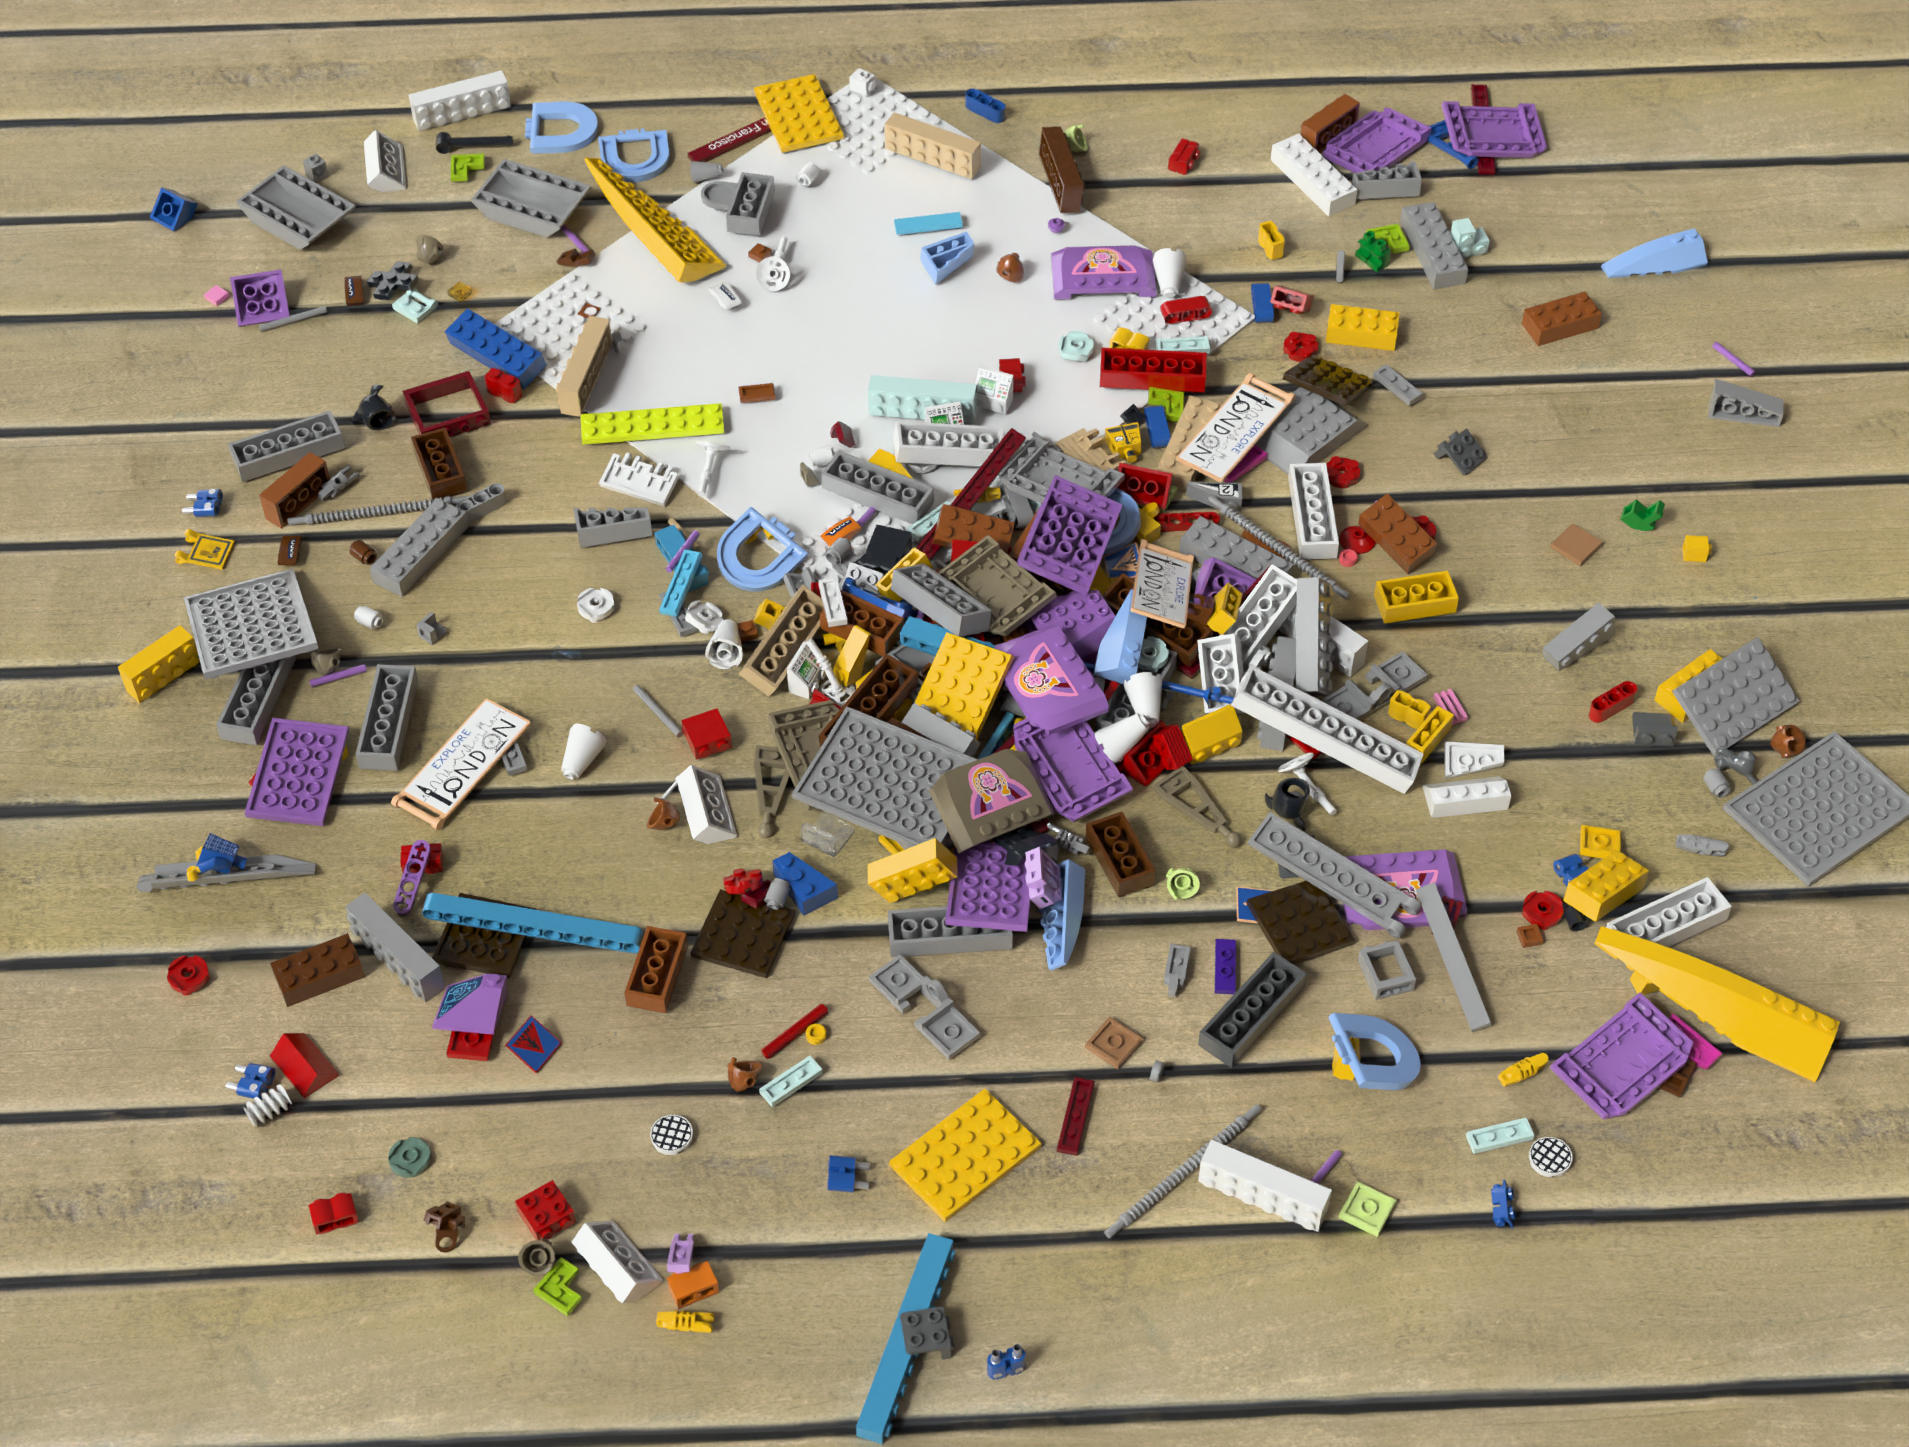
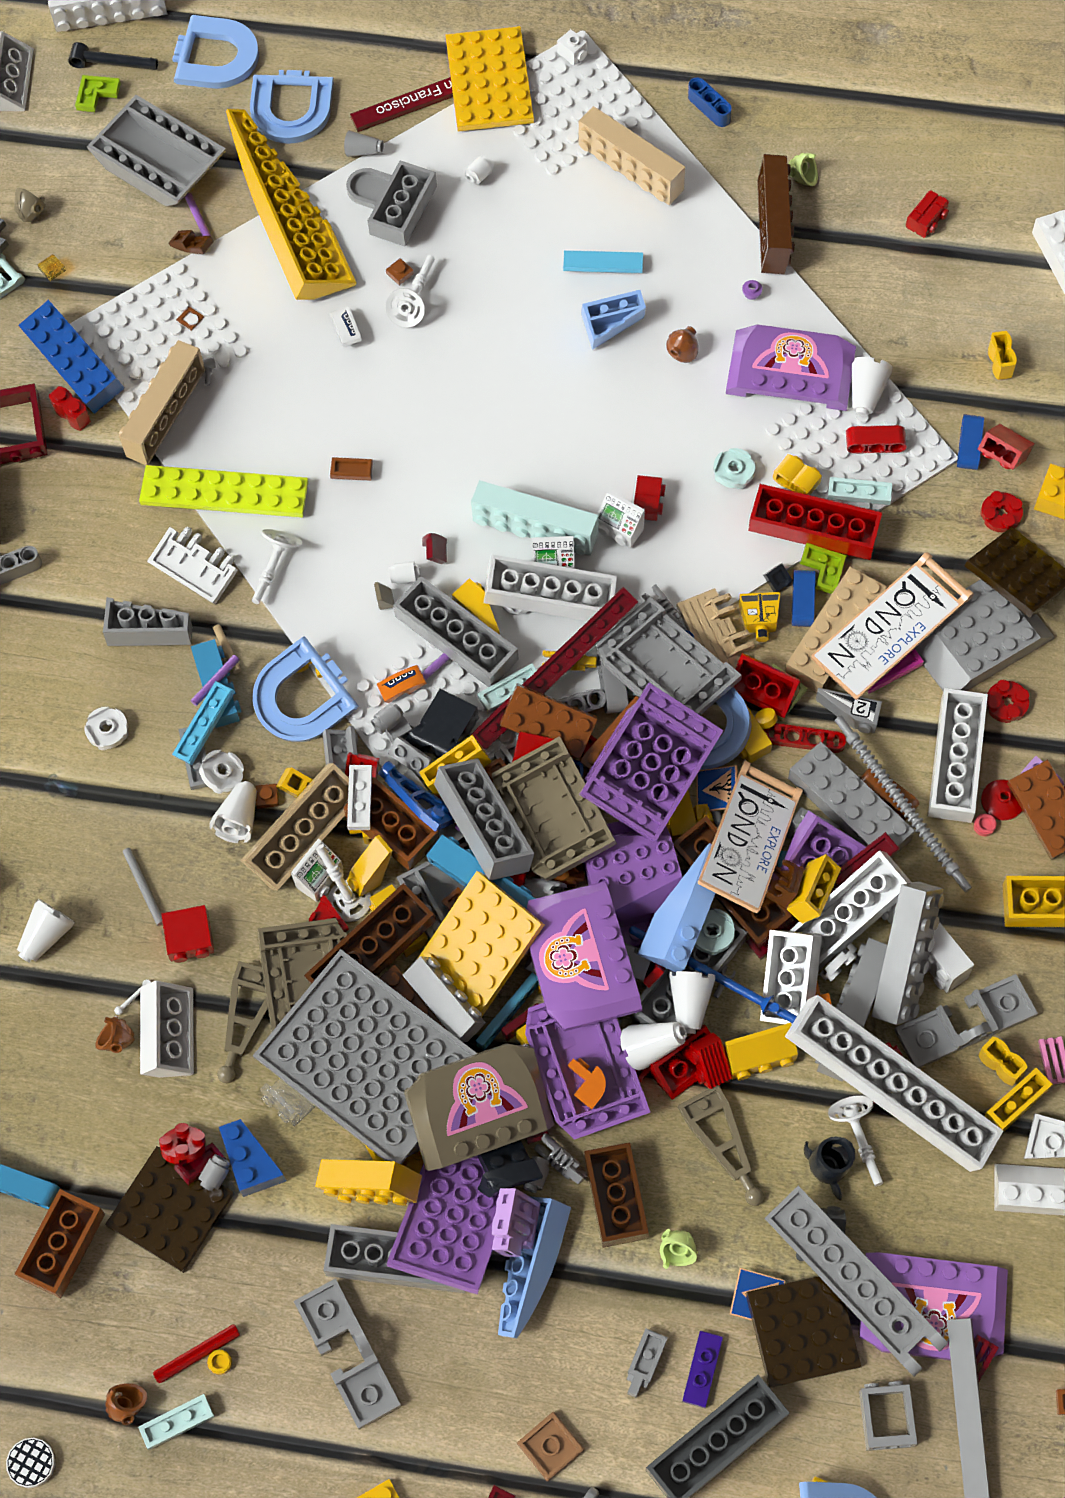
camera: 15 degrees right, 15 degrees up
(1080, 772) = (593, 1086): none -> orange brick

